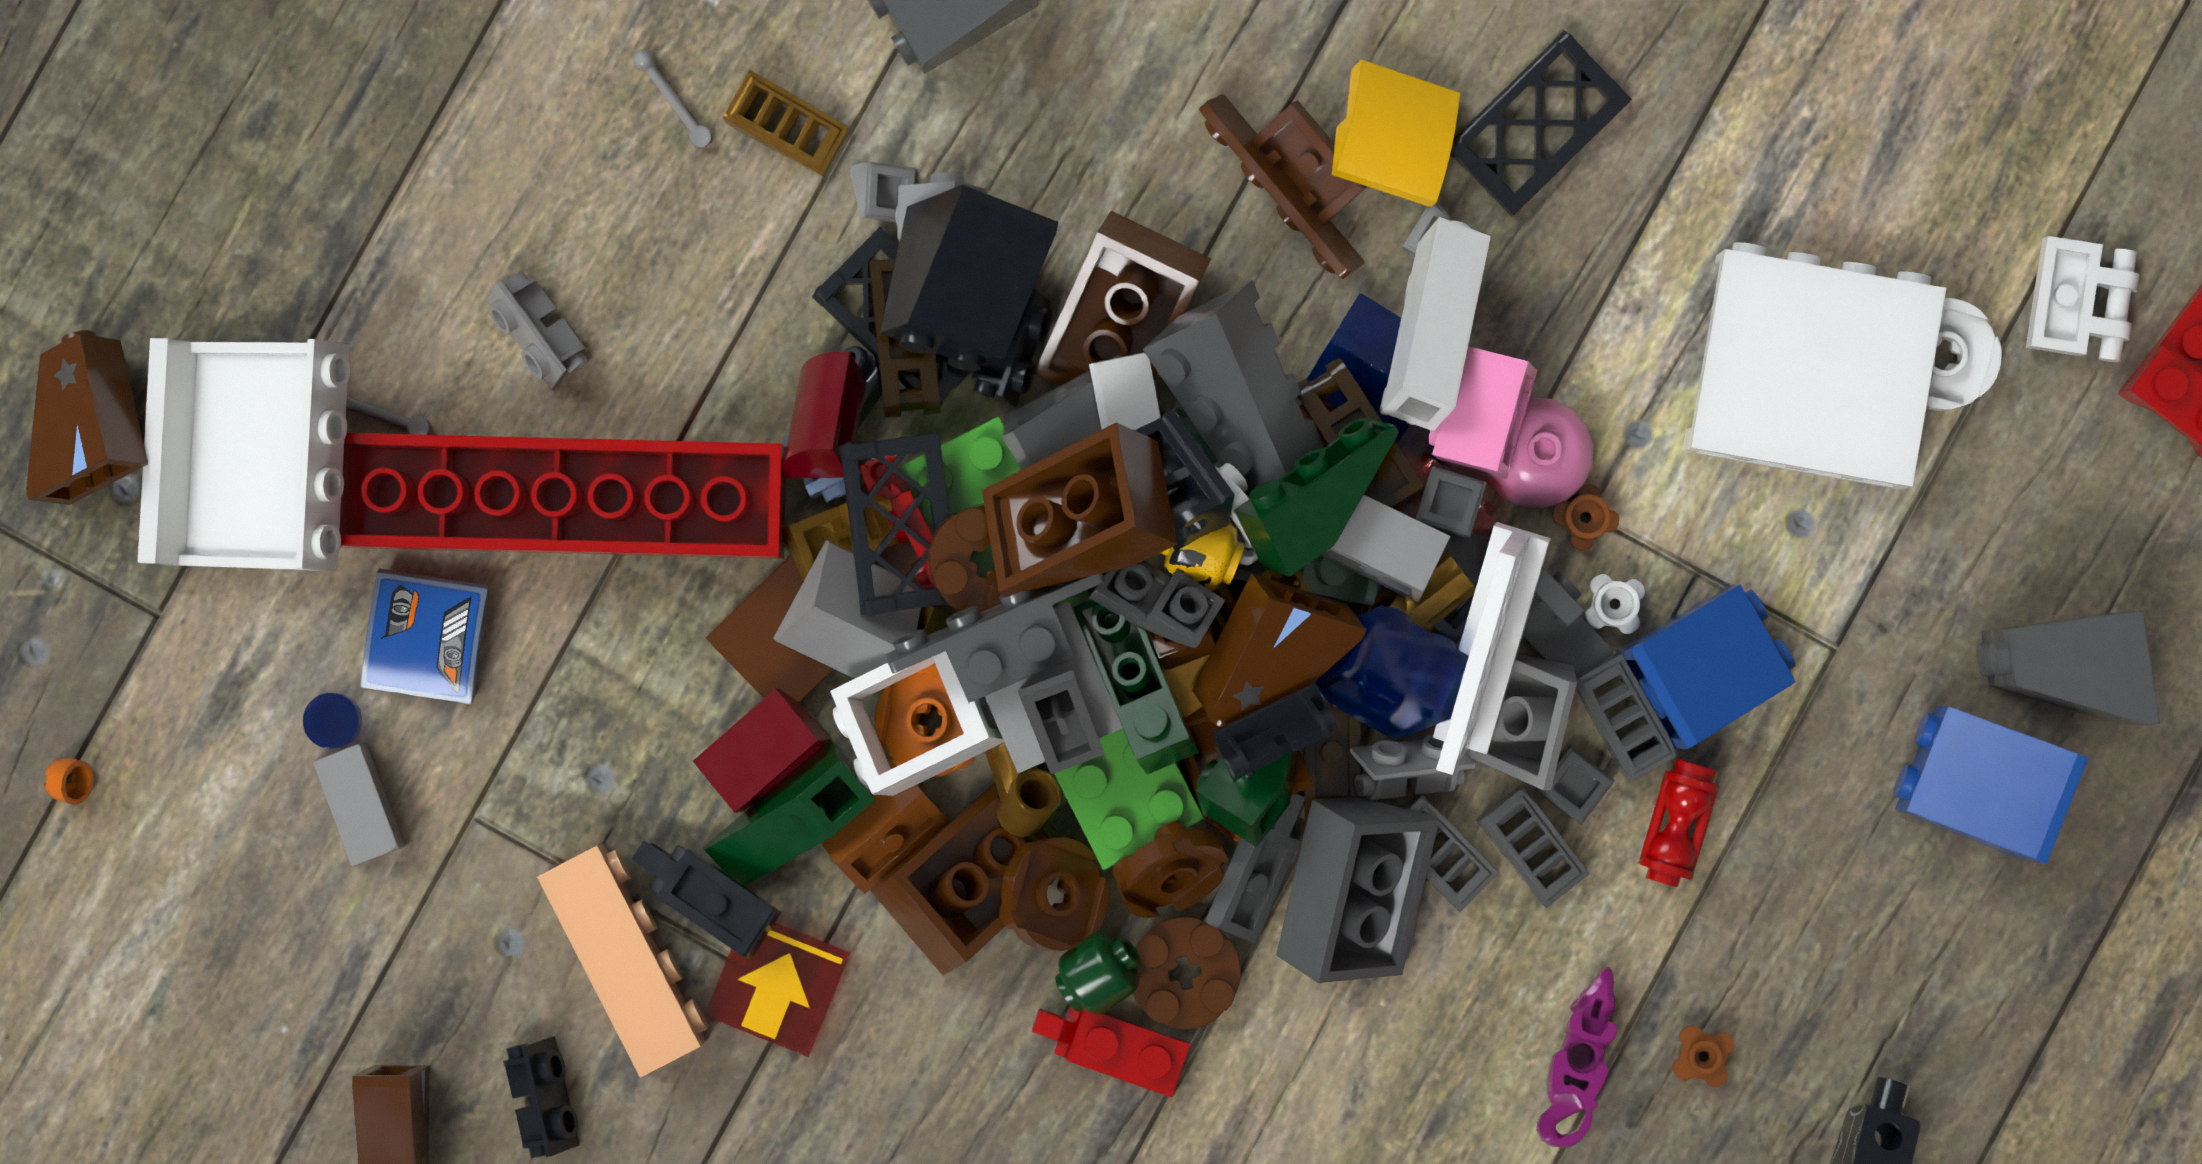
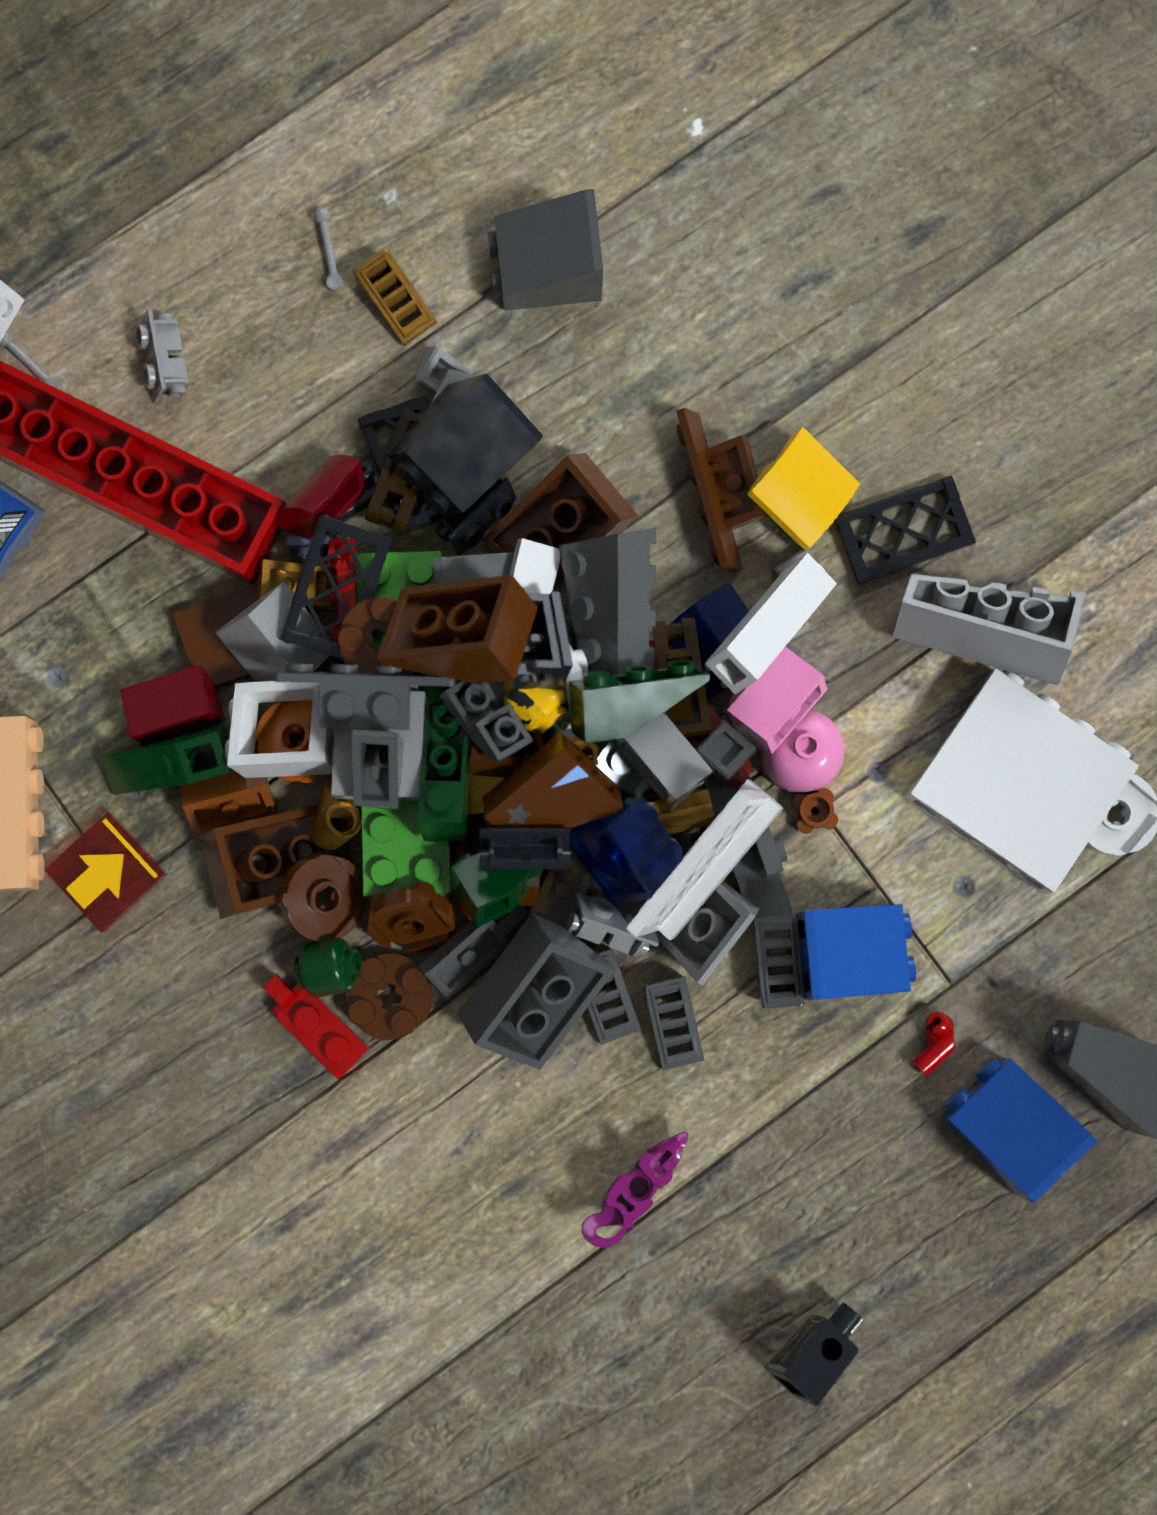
camera: 30 degrees right, 5 degrees down
(709, 897) = (85, 789): black hinge -> none
(1577, 785) = (723, 994): dark grey tile -> none
(1629, 596) = (820, 878): white plate -> none
(1687, 794) = (797, 1036): red piece -> none
(1688, 1063) = (725, 1240): dark orange plate -> none
(1697, 196) = (992, 625): none -> light grey wedge
(1856, 725) = (940, 1043): none -> red arm

